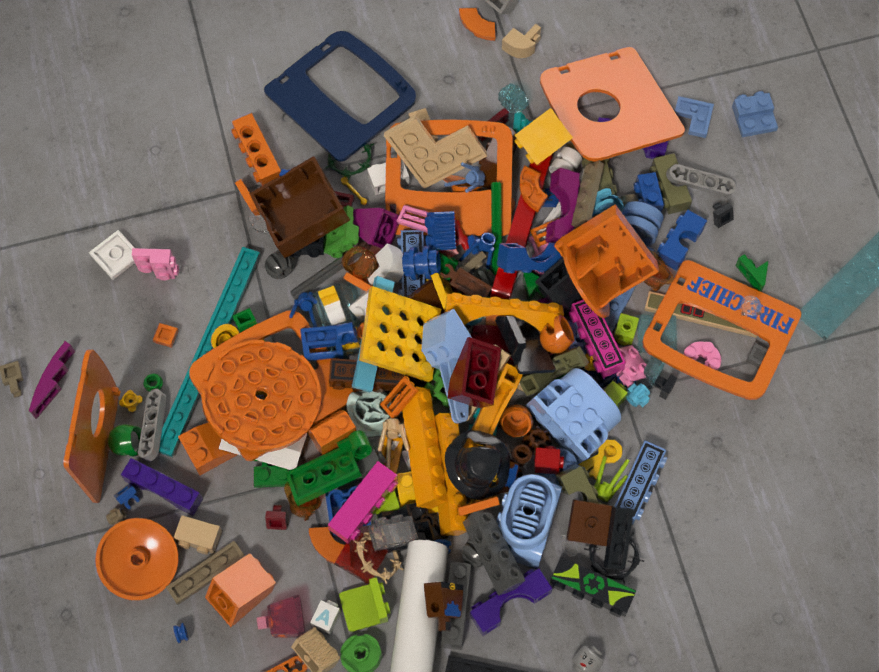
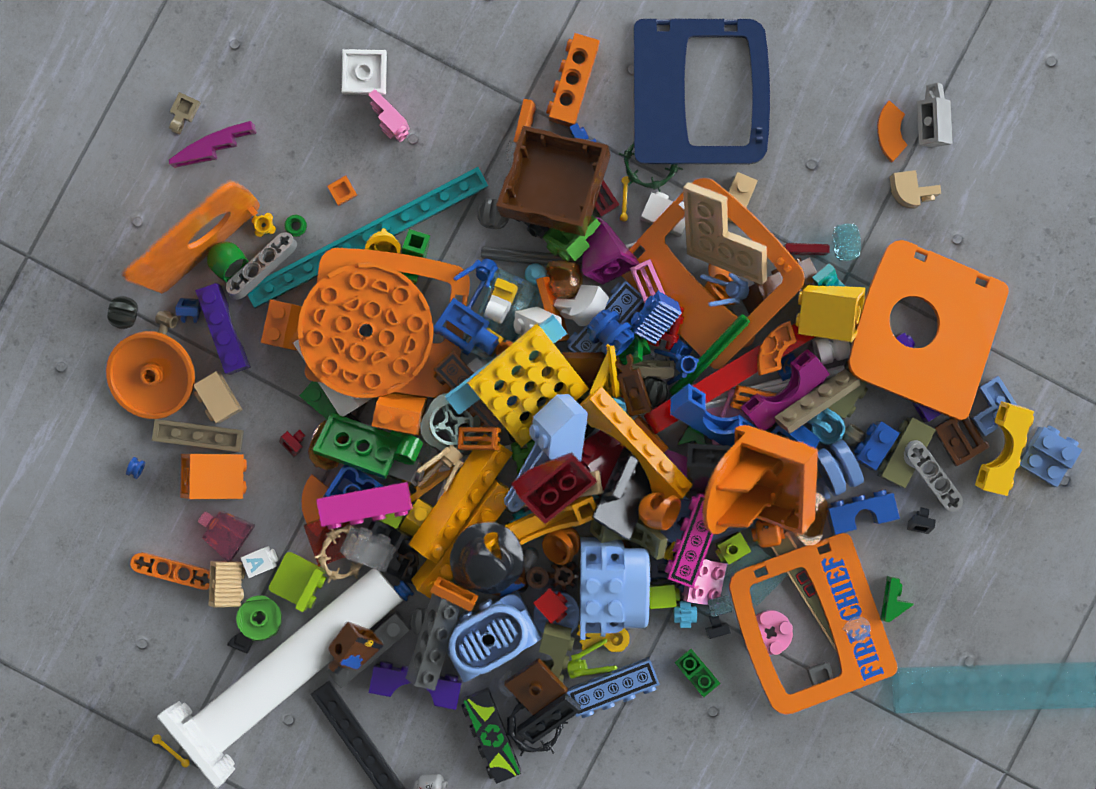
camera: 40 degrees right, 20 degrees up
(80, 536) = (122, 312): none -> pearl dark grey piece
(338, 277) = (534, 272): none -> medium azure piece
(442, 278) = (613, 374): none -> yellow piece
(637, 300) = (767, 534): none -> orange head
(683, 426) = (697, 673): none -> green slope
(693, 153) = (956, 442): none -> reddish brown plate
(715, 111) = (999, 474): none -> yellow arch

